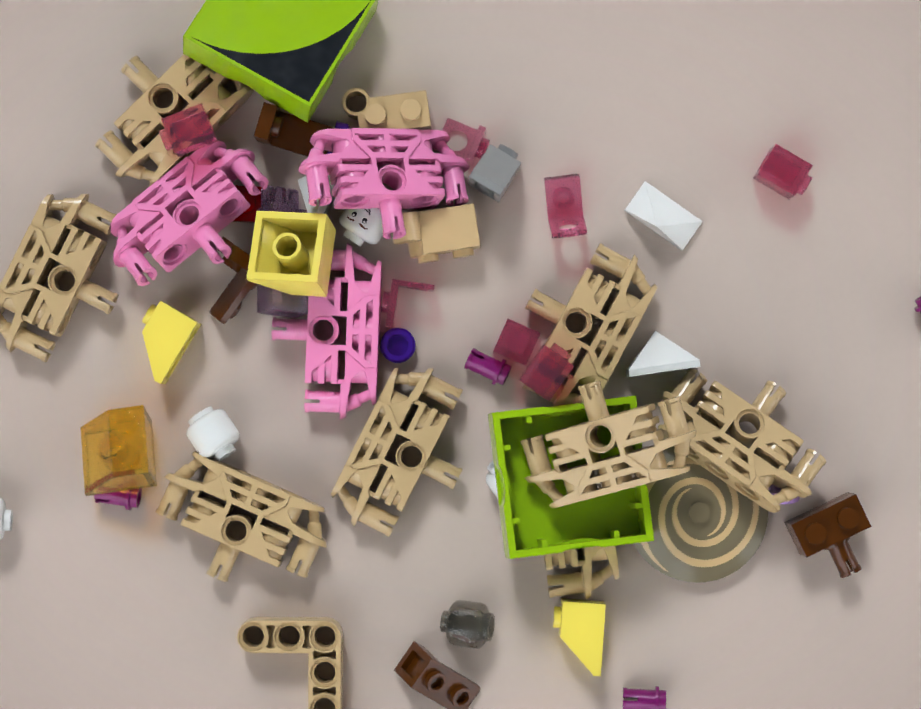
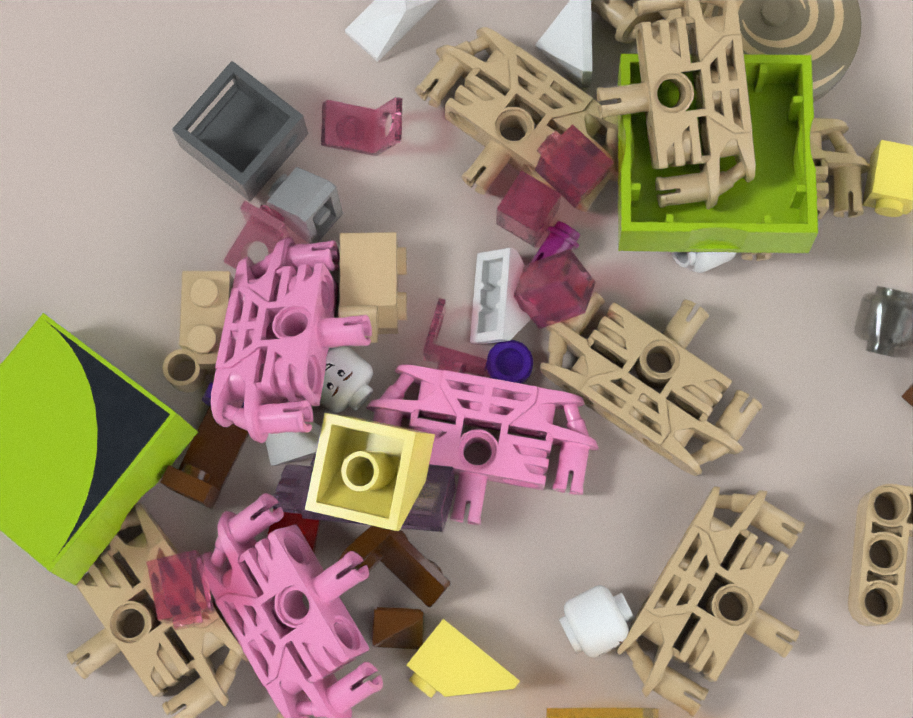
camera: 80 degrees left, 10 degrees down
(190, 291) = (398, 628): none -> reddish brown slope
(446, 333) = (495, 310): none -> white slope
(452, 370) = (554, 289): none -> clear pink brick
(544, 114) = (244, 133): none -> dark grey piece

